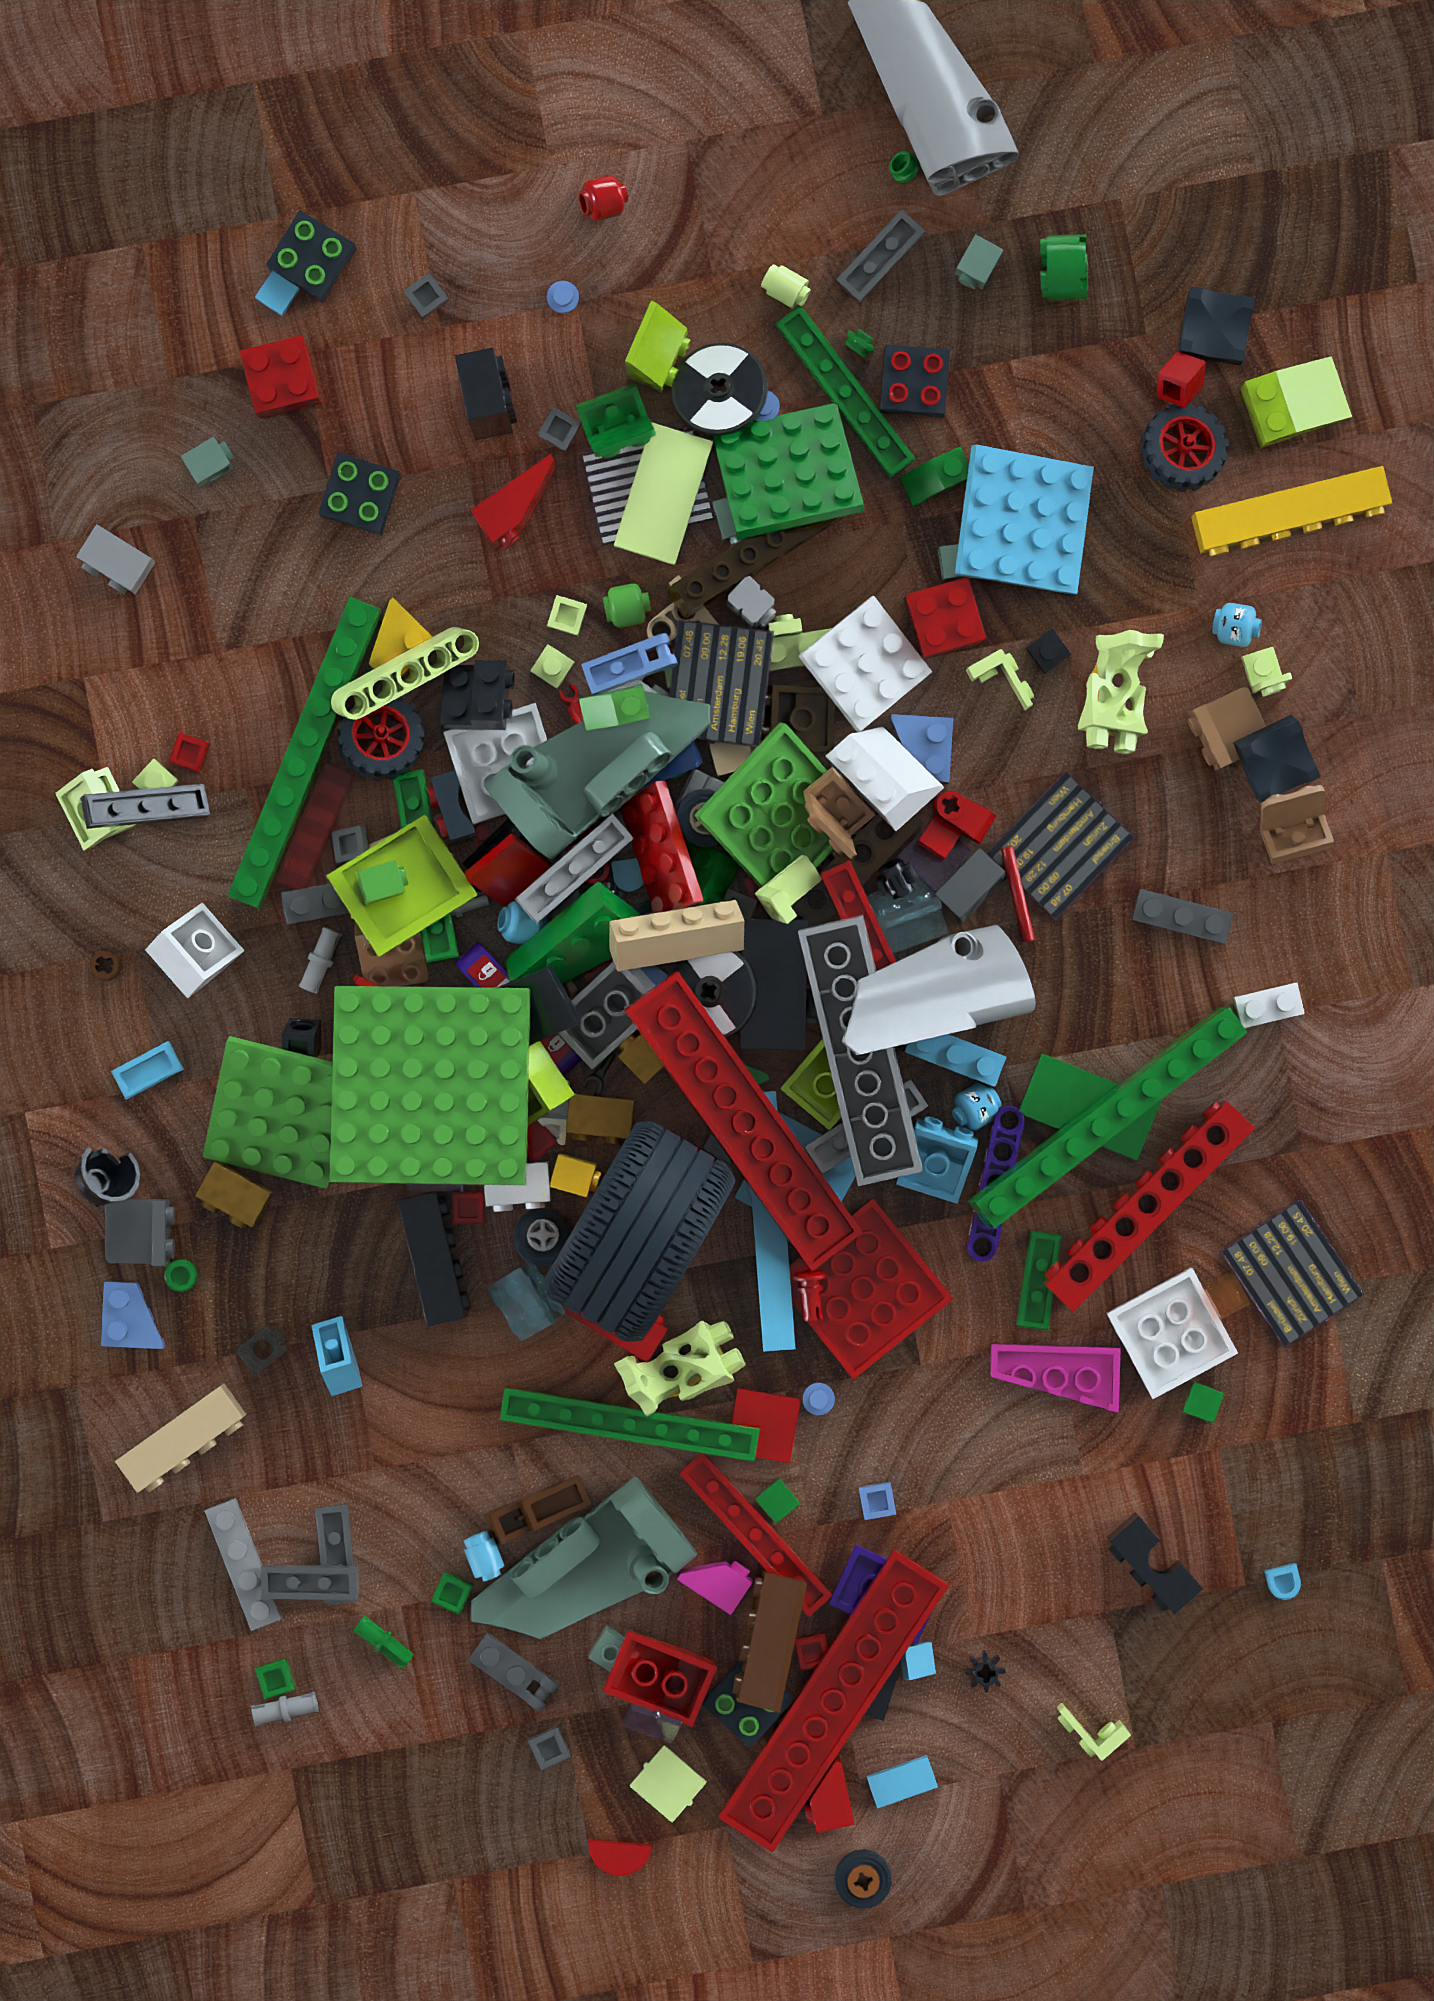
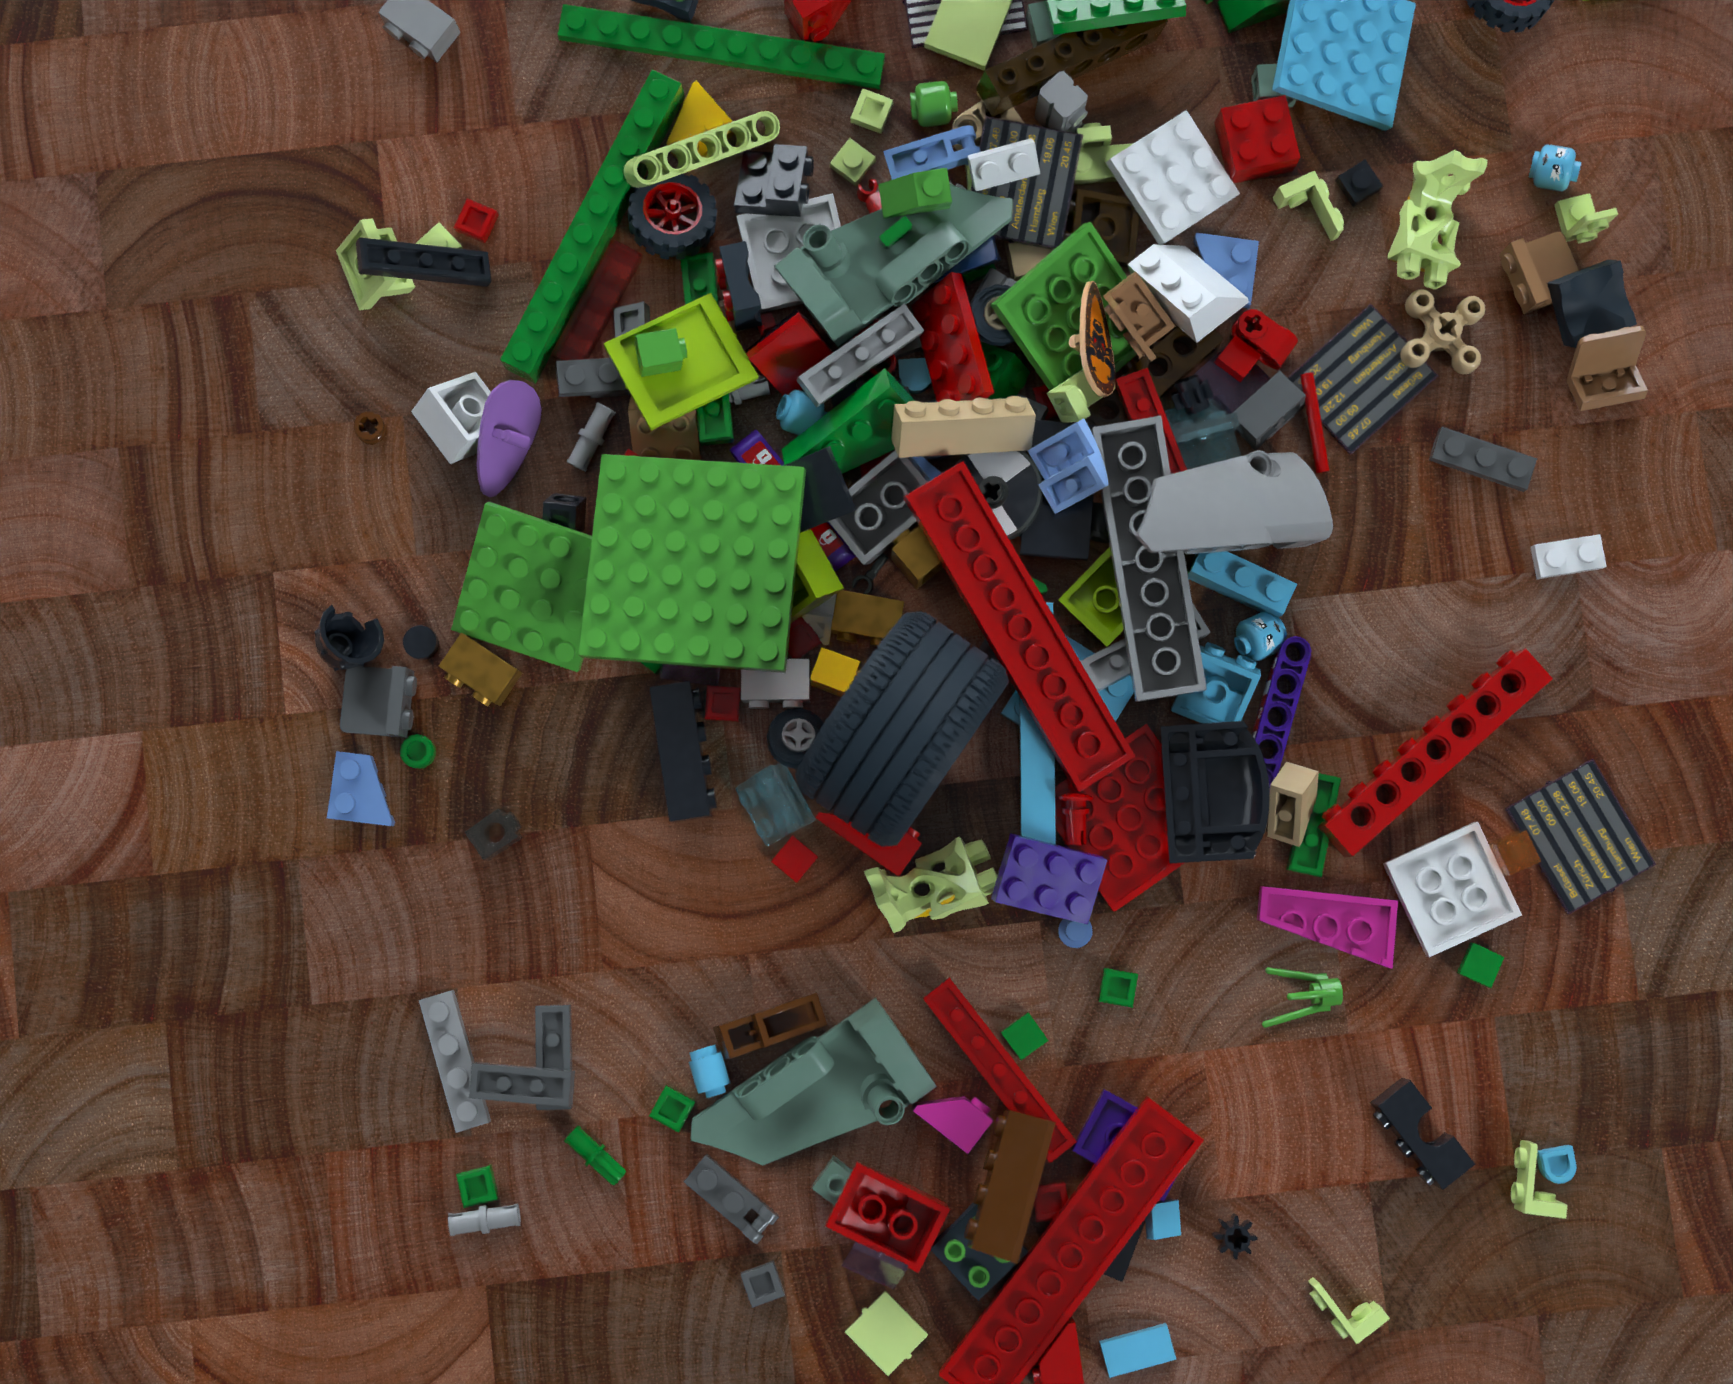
camera: 10 degrees right, 5 degrees down
(147, 1070) = (403, 537): medium azure tile -> none
(174, 1171) = (420, 642): none -> black tile
(181, 1438) = (400, 921): tan brick -> none
(238, 964) = (506, 433): none -> medium lavender shield
(336, 1356) = (571, 847): medium azure slope -> none
(414, 559) = (721, 46): none -> green plate
(548, 1351) = (794, 859): none -> red tile
(598, 746) = (895, 233): none -> green tile
(629, 1424) = (875, 941): green plate -> none
(698, 671) = (1003, 164): none -> white plate
(774, 1416) = (1015, 954): red tile -> none
(780, 967) = (1069, 466): none -> light blue slope
(788, 1355) = (1049, 879): none -> dark purple plate
(797, 842) = (1095, 342): none -> shield
(862, 1448) = (1118, 987): none -> green tile
(877, 1500) = (1130, 1043): medium blue plate -> none
(938, 1262) = (1214, 792): none -> black slope
(1014, 1264) = (1292, 803): none -> tan slope
(1056, 1440) = (1323, 993): none -> bright green plant
(1063, 1092) = (1377, 647): green tile -> none
(1107, 1117) = (1399, 654): green brick -> none
(1147, 787) = (1451, 323): none -> tan gear
(1270, 1618) = (1522, 1190): none -> yellowish green bracket
(1291, 510) = (1616, 59): yellow brick -> none

